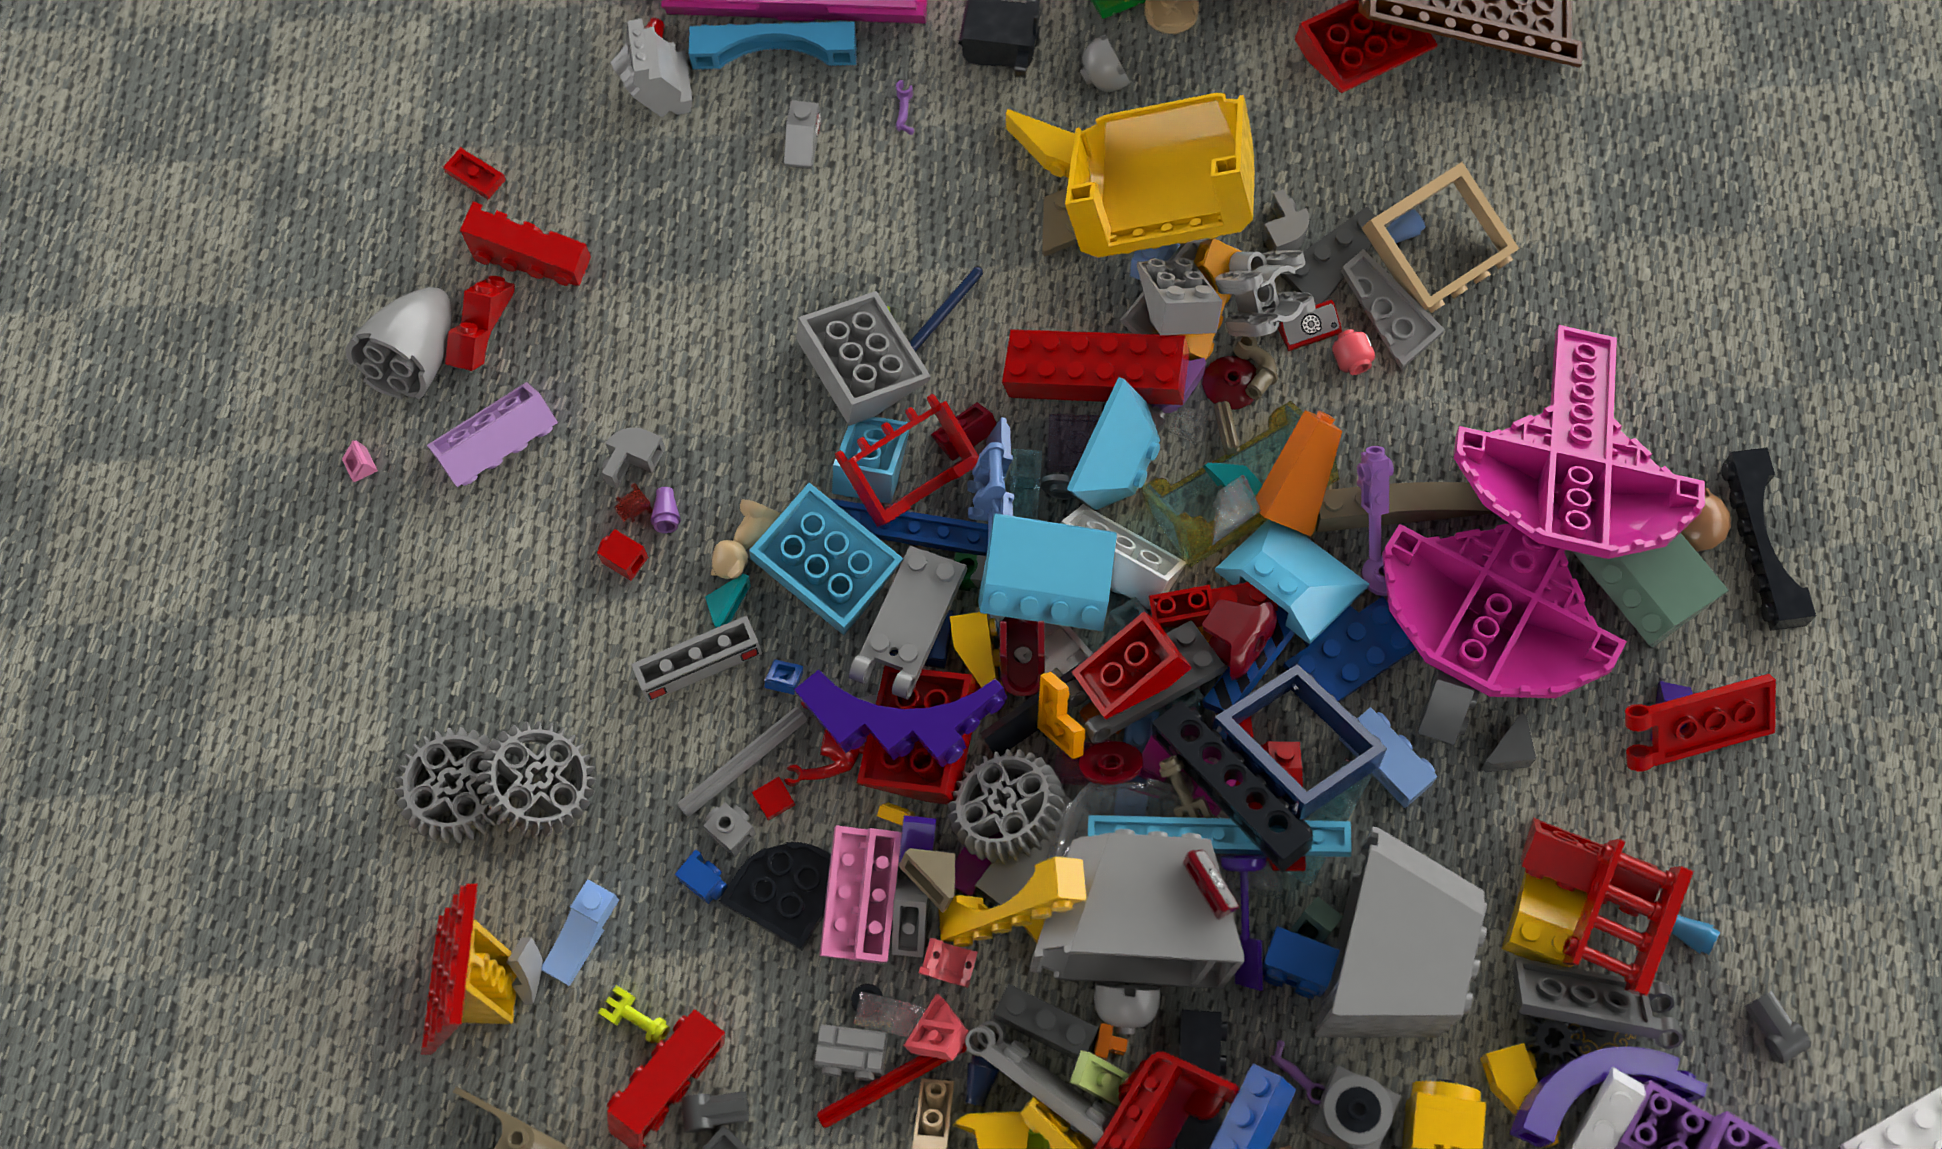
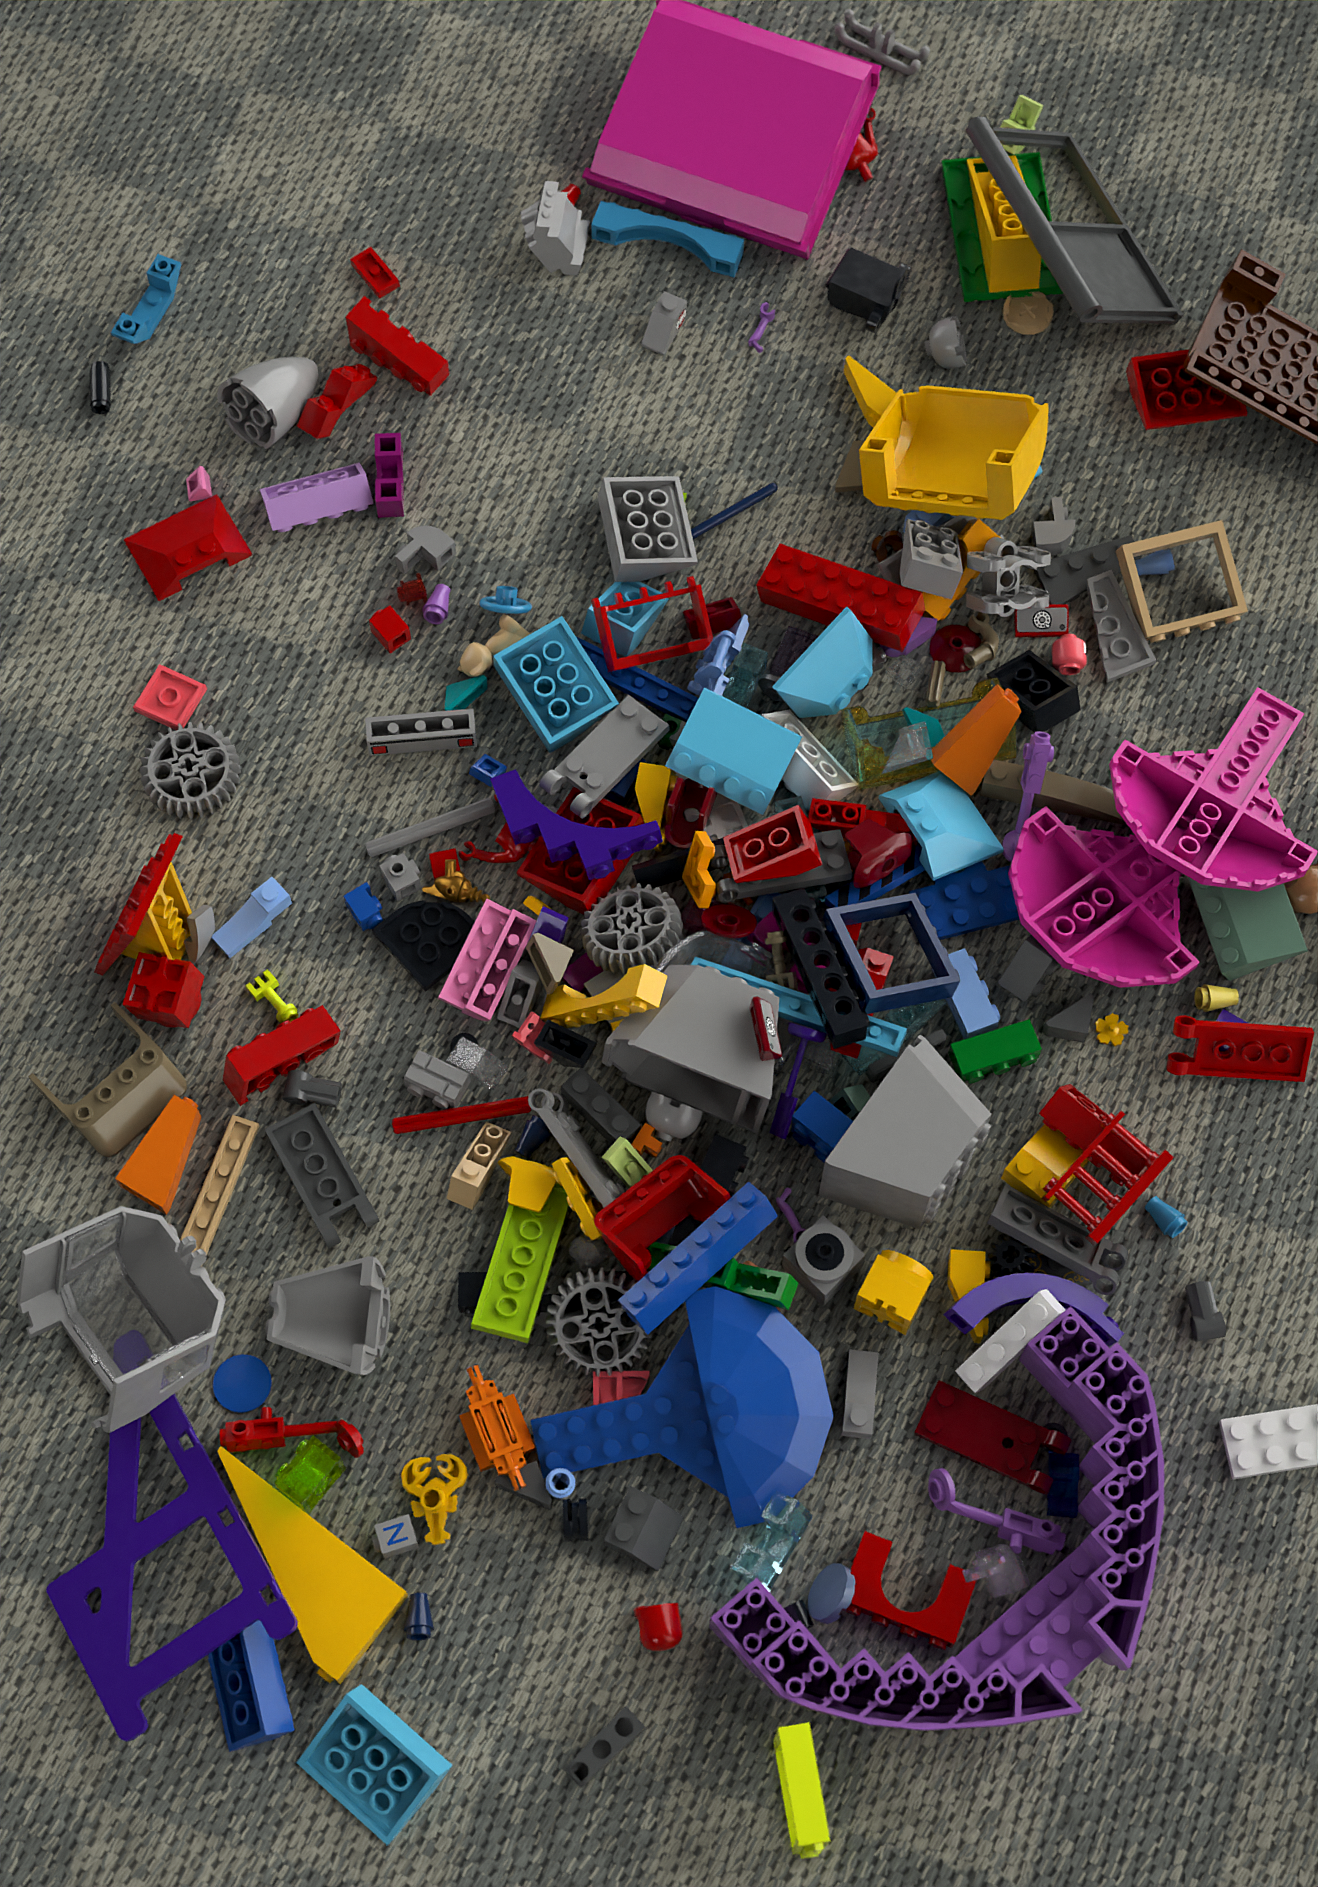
camera: 15 degrees right, 0 degrees up
(213, 388) = (100, 387): none -> black piece
(245, 274) = (162, 286): none -> dark azure slope
(366, 532) = (186, 545): none -> red slope
(404, 709) = (170, 697): none -> coral plate
(509, 1054) = (164, 990): none -> red piece
(535, 793) = (261, 775): light grey gear -> none
(564, 386) = (390, 475): none -> magenta arch
(739, 485) = (505, 601): none -> dark azure piece
(794, 820) = (454, 886): none -> pearl gold piece
(937, 1032) = (510, 1087): coral wing -> none
(981, 963) = (565, 1045): none -> black slope
(1122, 287) = (892, 538): none -> reddish brown piece
(1336, 864) = (881, 1067): none -> dark grey tile
(1349, 399) = (1042, 691): none -> black slope
(1444, 810) = (995, 1051): none -> green brick
(1552, 743) = (1110, 1030): none -> yellow plant
(1647, 672) = (1215, 997): none -> light yellow cone

